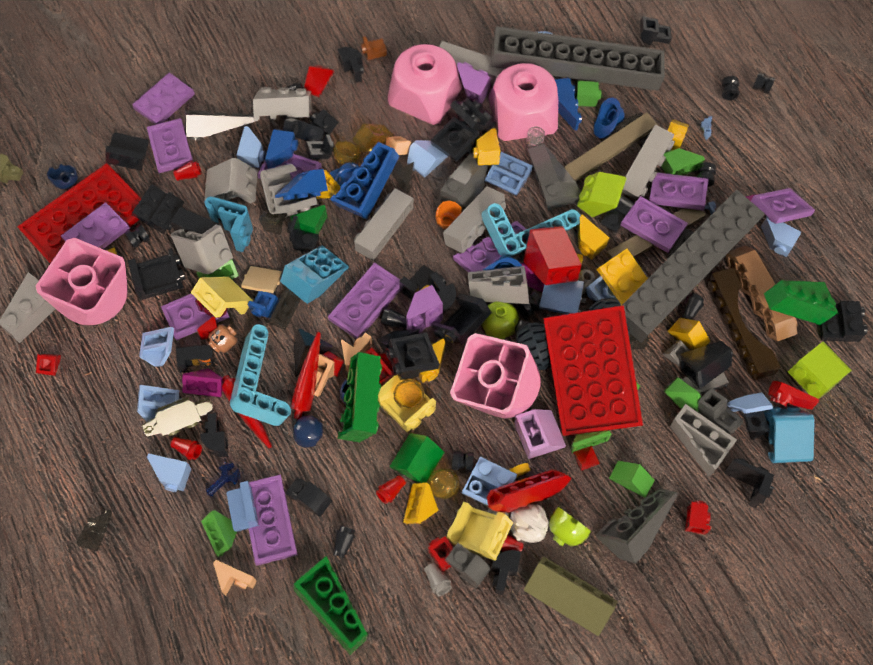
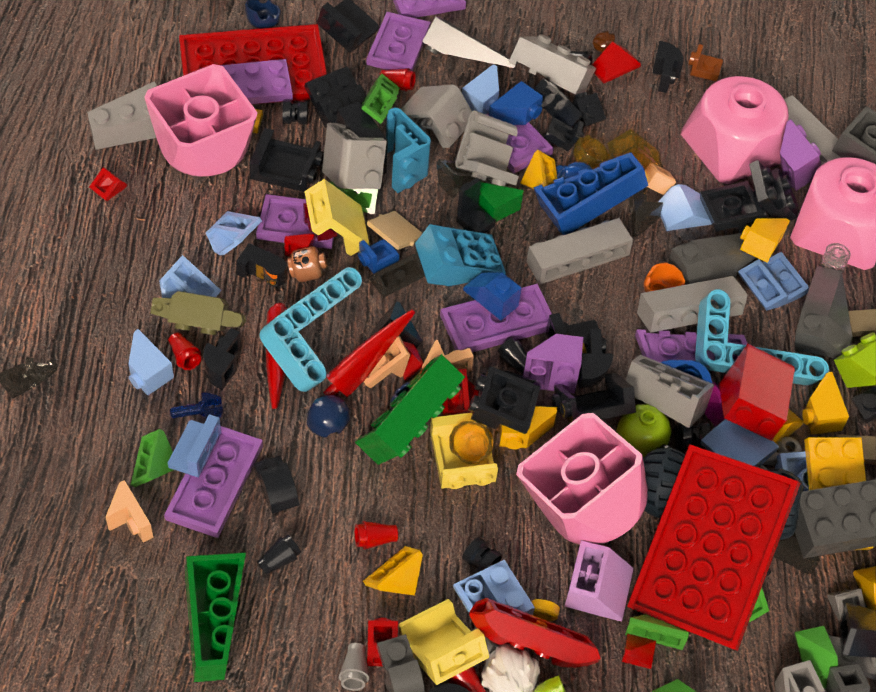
camera: 30 degrees right, 10 degrees down
(190, 195) = (380, 98): none -> bright green slope
(202, 383) = (250, 297): magenta slope -> none
(301, 68) = (603, 40): none -> reddish brown plate
(303, 184) = (521, 157): blue slope -> none
(354, 286) = (495, 293): none -> blue slope
(417, 458) = (432, 522): green slope -> none
(444, 483) = (442, 568): clear yellow hair -> none

